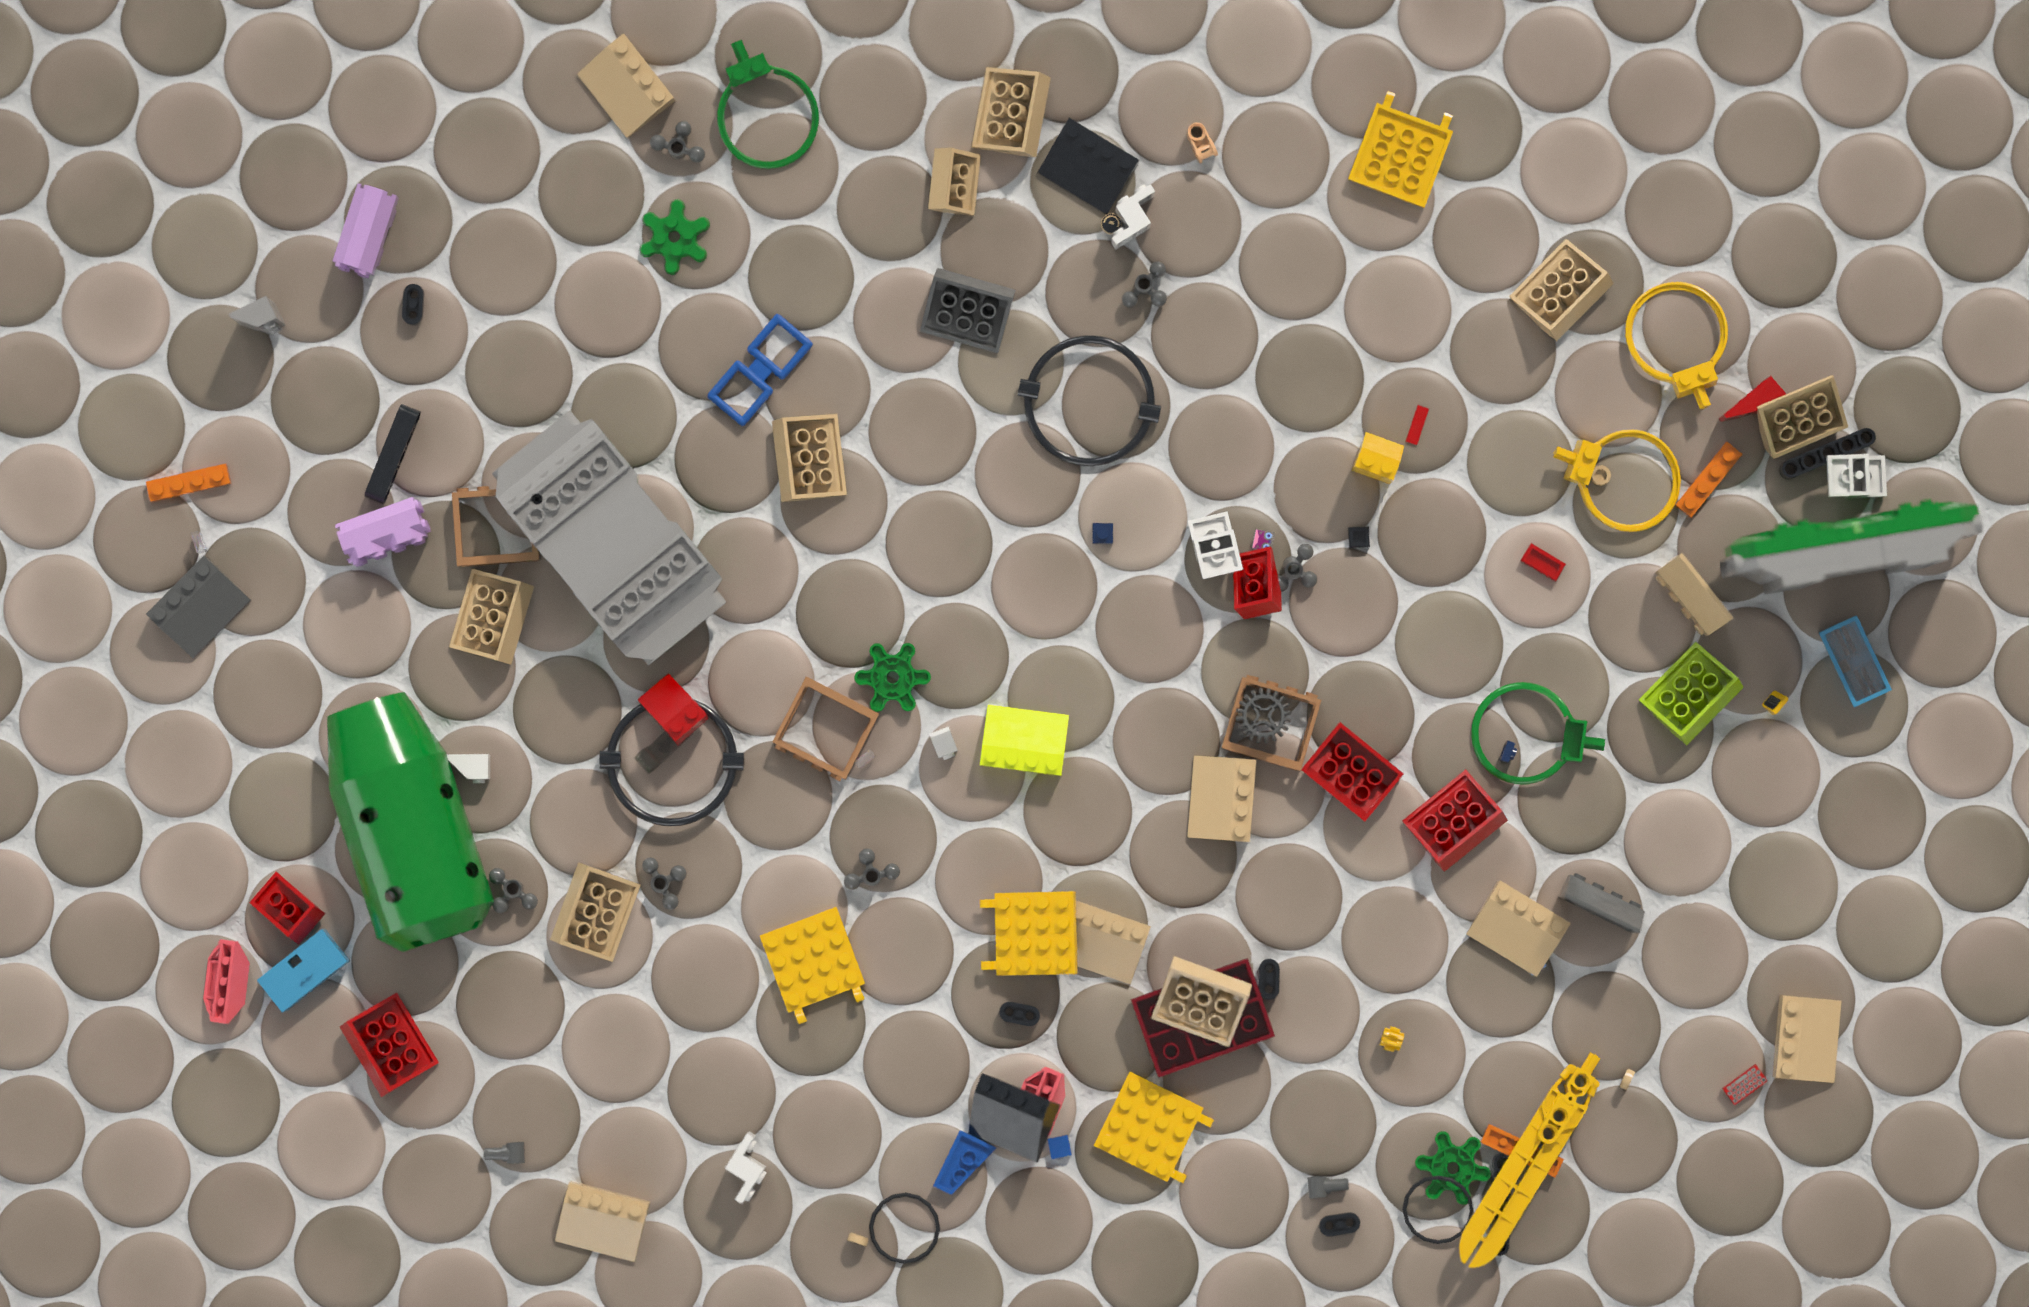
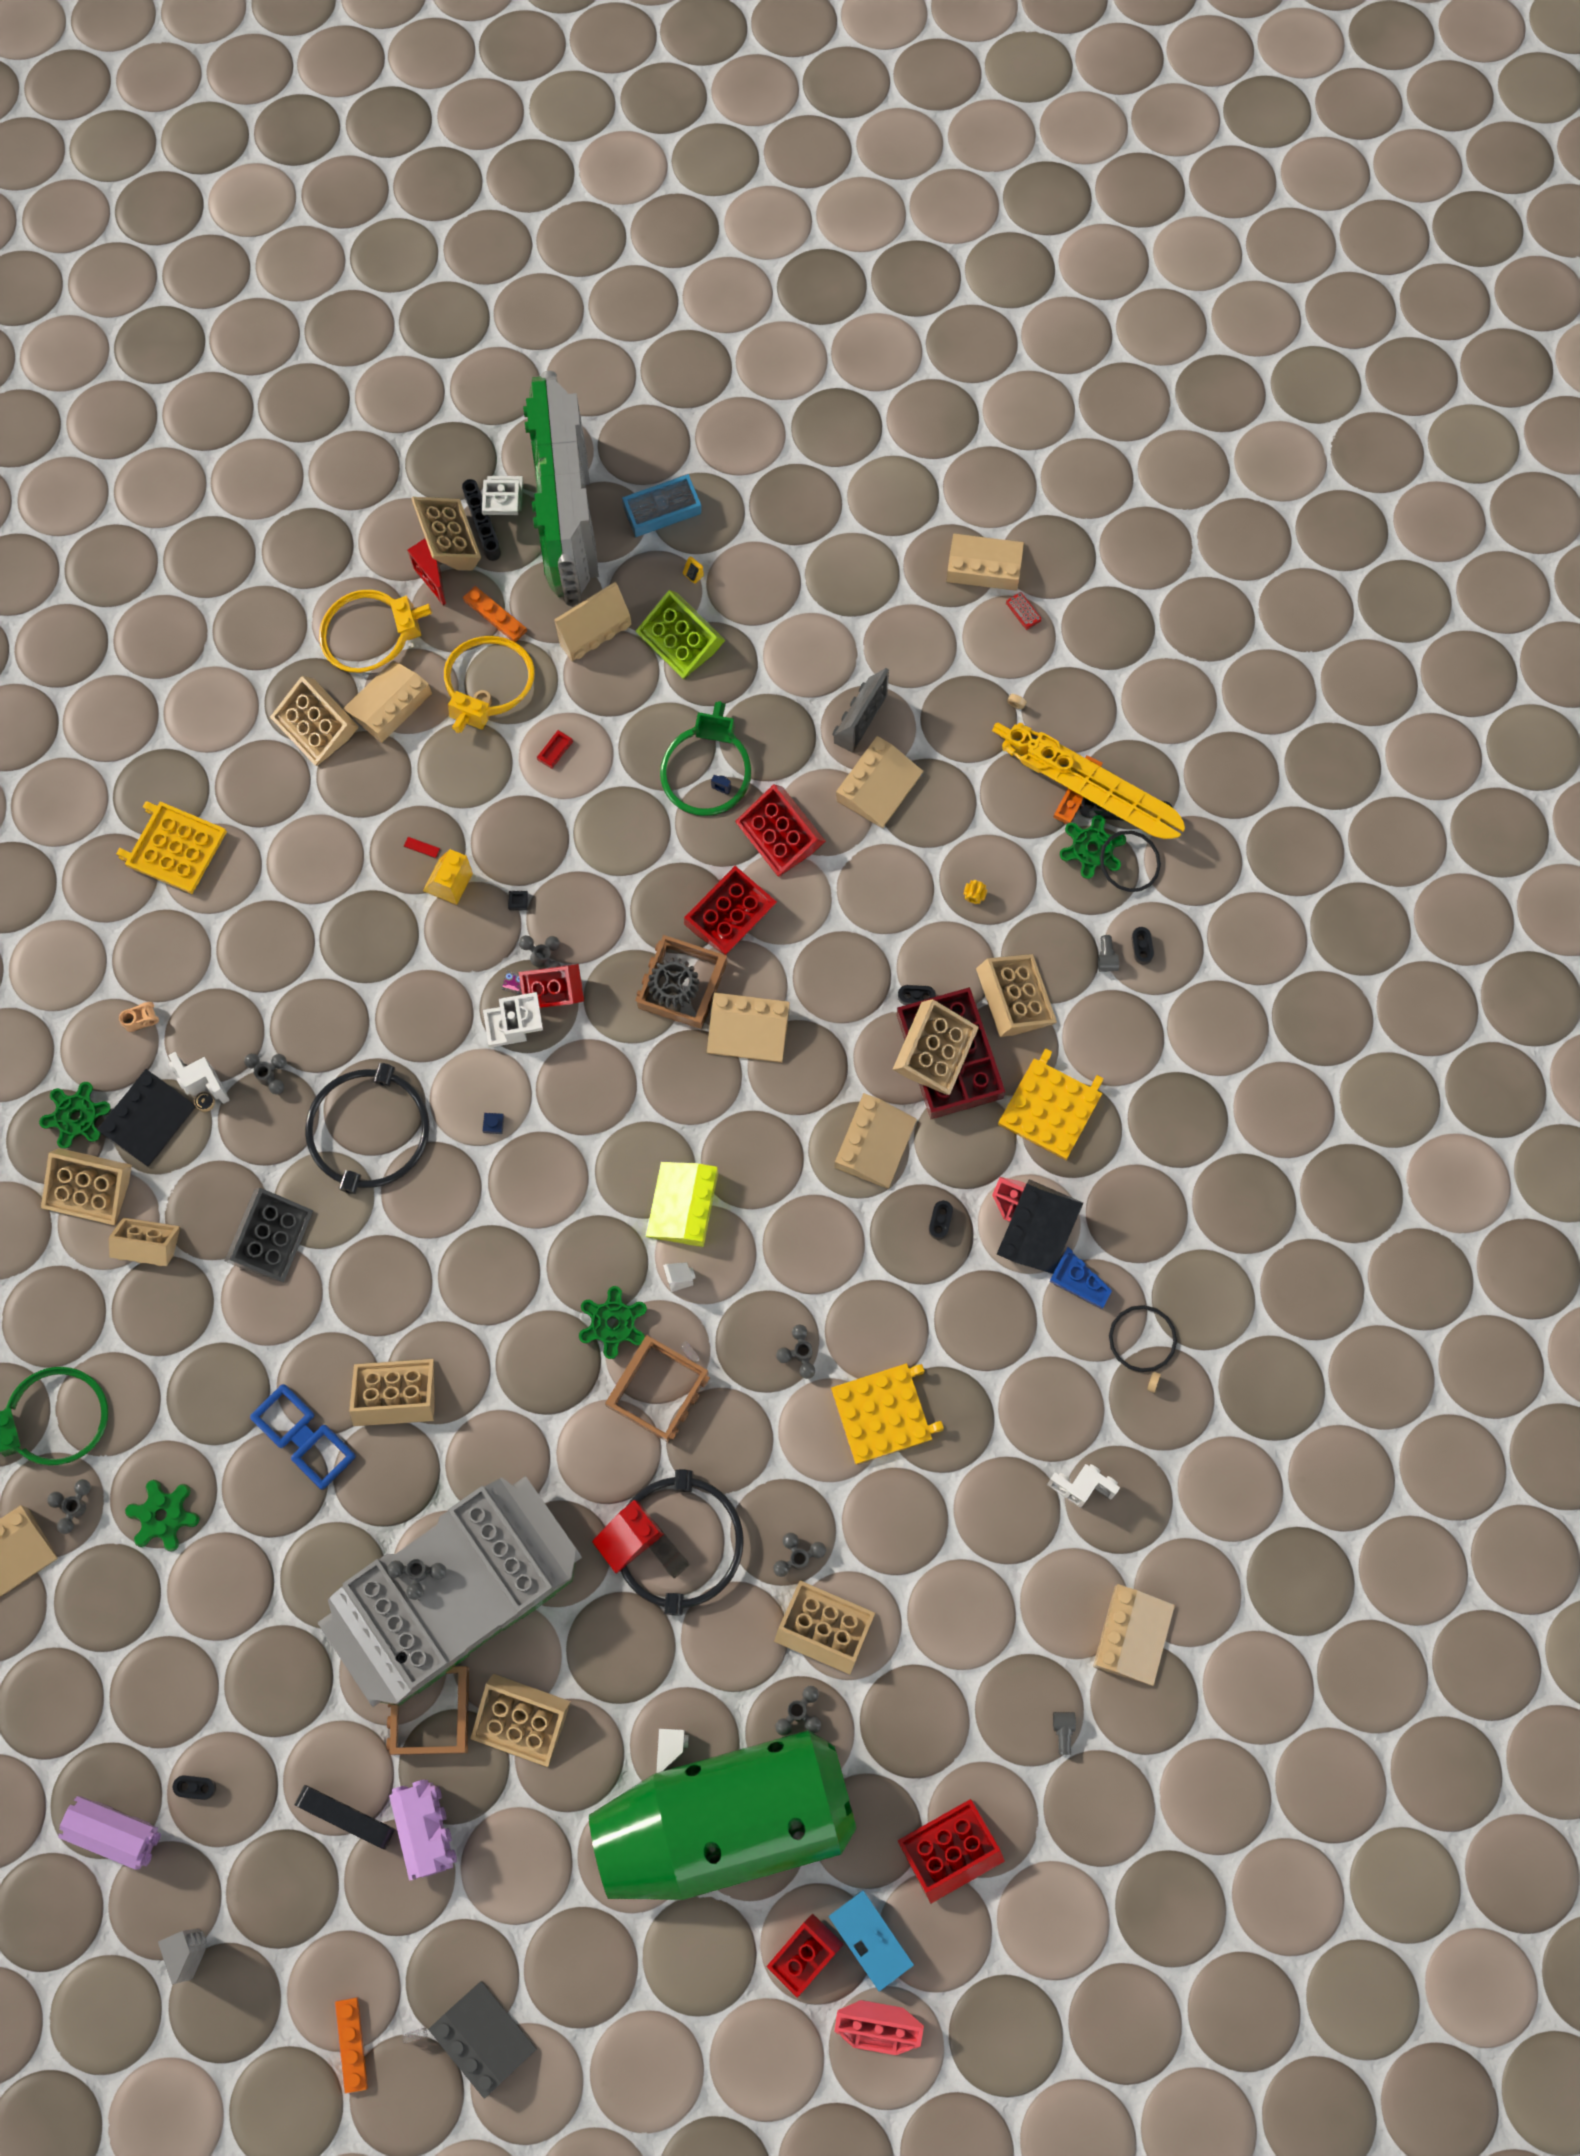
camera: 85 degrees left, 15 degrees down
(600, 506) = (415, 1590): none -> dark grey piece
(1034, 933) = (865, 1199): yellow plate -> none
(1059, 1146) = (1068, 1187): blue tile -> none
(1086, 75) = (66, 1106): none -> green plate
(1275, 1087) = (1015, 994): none -> tan slope
(1593, 368) = (388, 700): none -> tan slope

